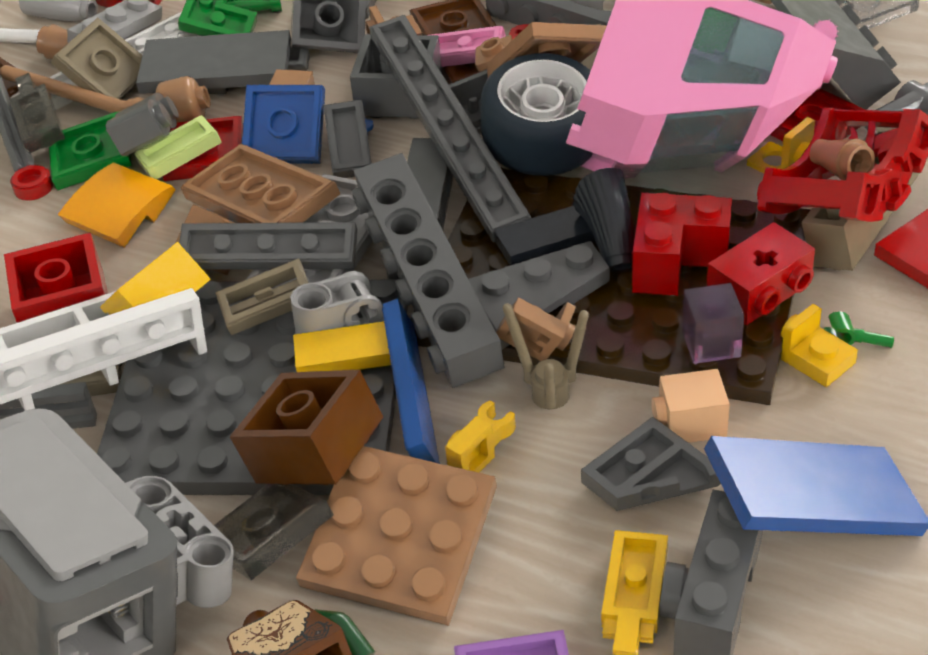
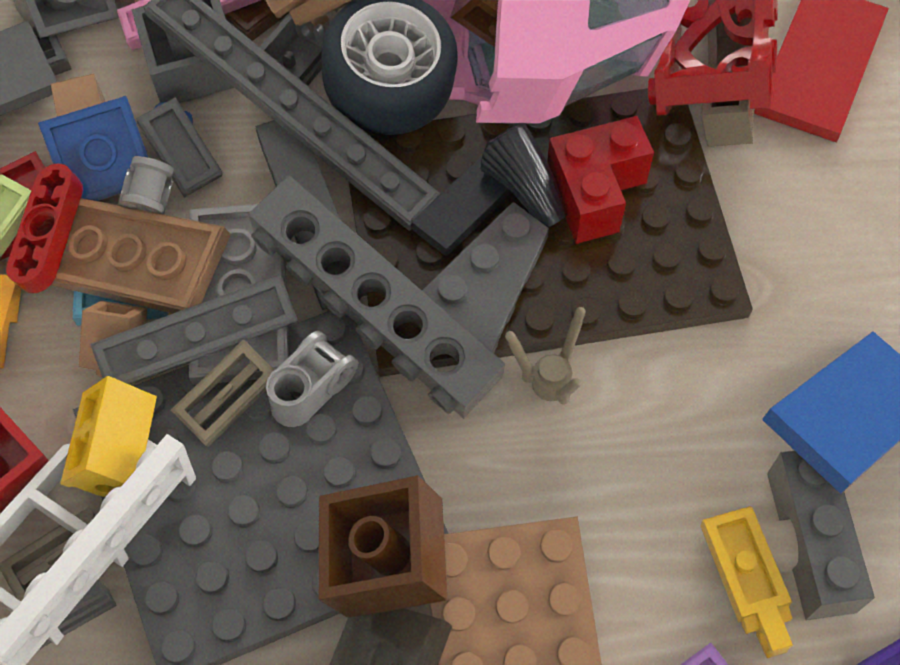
camera: 30 degrees left, 20 degrees up
(208, 156) = (52, 187): none -> red beam
(302, 146) = (147, 185): none -> light grey piece
(342, 348) = (339, 424): yellow tile -> none
(409, 383) = (428, 437): blue tile -> none
(475, 443) = (521, 484): yellow plate -> none
(540, 330) = (536, 329): medium nougat bracket -> none
(648, 468) = (692, 436): dark grey wing -> none
(672, 589) = (788, 559): dark grey tile -> none
(693, 405) = (696, 354): light nougat brick -> none
(712, 323) = (683, 263): brick -> none
(764, 270) = (691, 187): red brick -> none
(814, 349) = (764, 244): yellow bracket -> none
(842, 156) = (712, 31): medium nougat cone -> none
(844, 330) = (776, 216): green hand -> none

